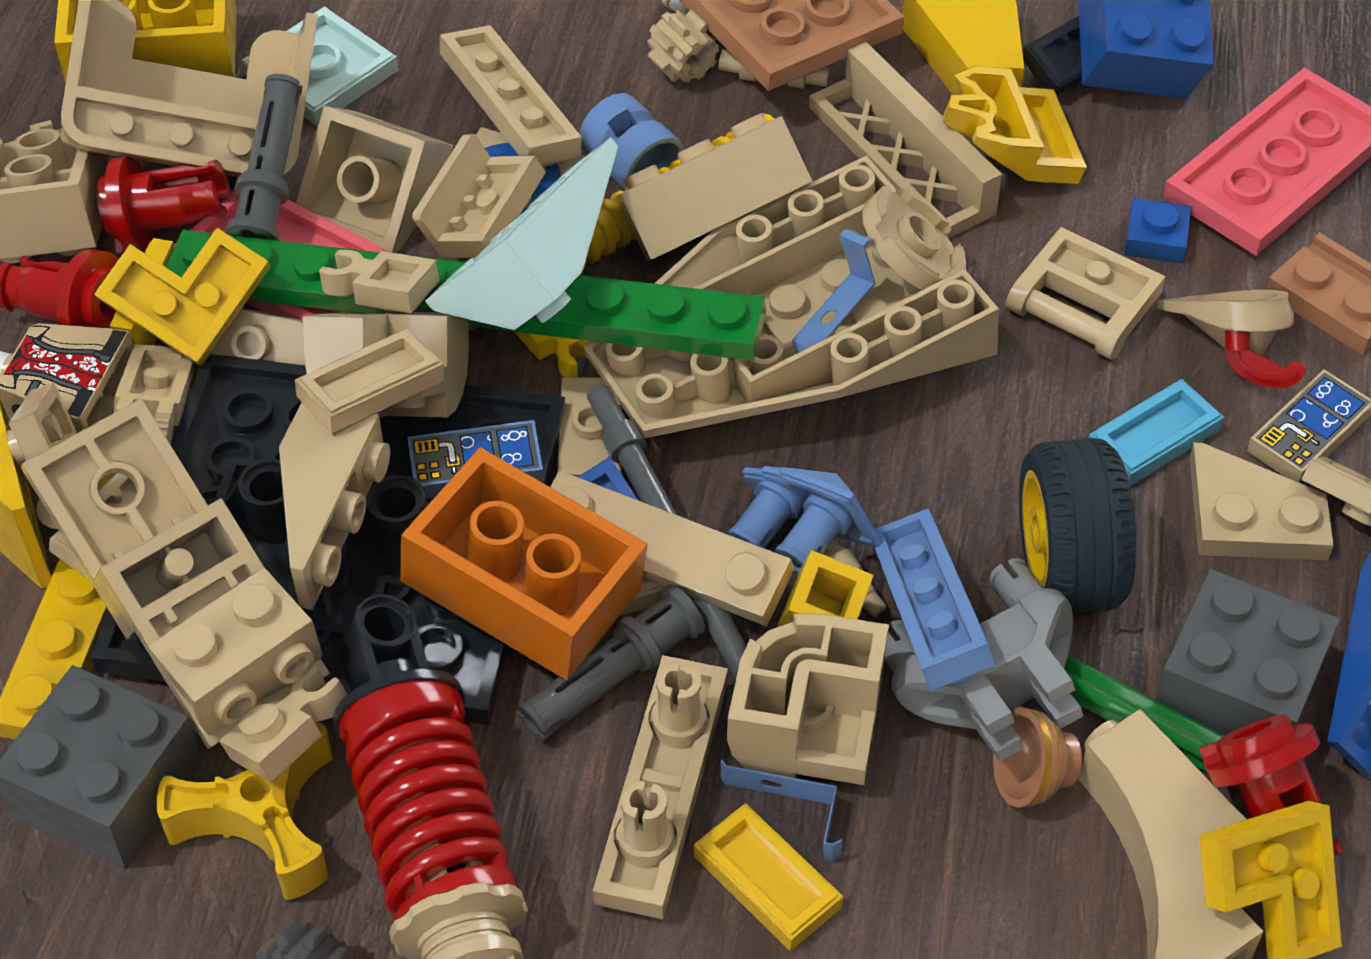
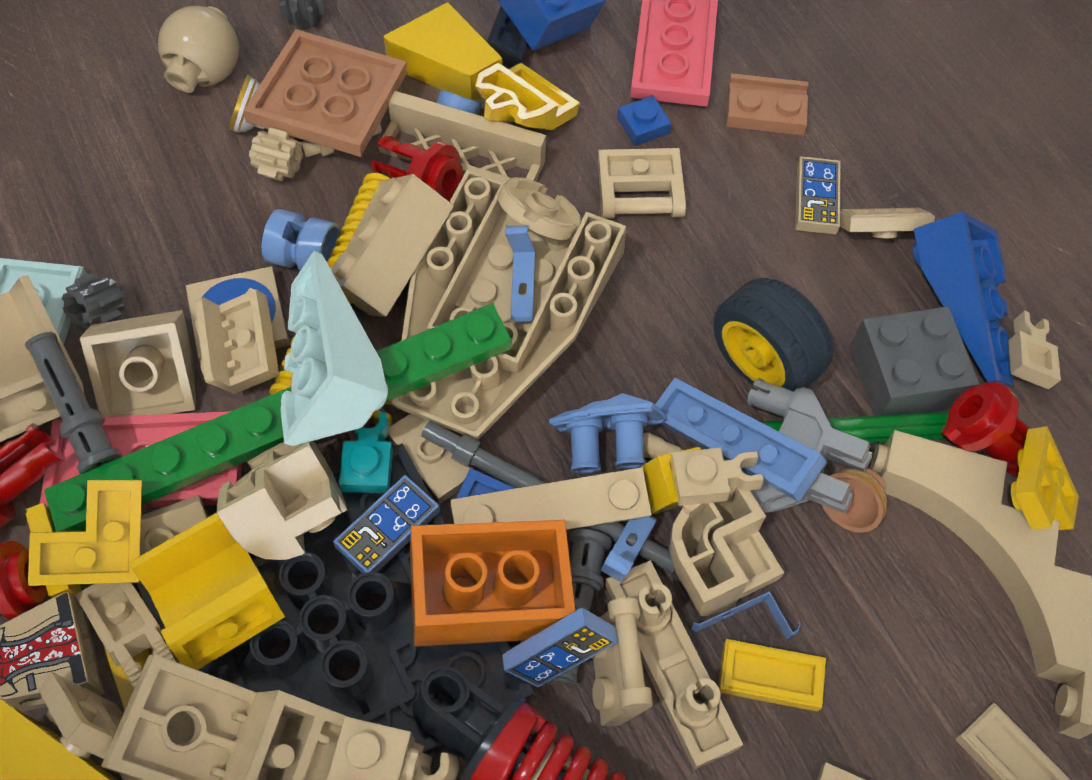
camera: 40 degrees left, 10 degrees up
(240, 398) = (206, 592): none -> yellow panel
(326, 493) = (318, 616): tan slope -> none
(369, 380) = (305, 531): tan tile -> none
(376, 89) = (93, 300): none -> dark grey gear
(387, 282) = (239, 446): tan plate -> none
(510, 95) = (190, 252): tan plate -> none
(514, 389) = (368, 461): none -> teal plate
(539, 667) = (559, 647): none -> tile
(600, 723) = (619, 681): none -> tan plate
(703, 643) = (622, 555): none -> medium blue piece
(834, 137) = (437, 166): none -> red piece
(846, 596) = (706, 477): none -> tan plate
(931, 90) = (455, 101): none -> medium blue piece
(1160, 429) = (743, 247): medium azure tile -> none
(1244, 326) = (739, 151): tan piece -> none
(1255, 510) = (829, 263): tan wing -> none

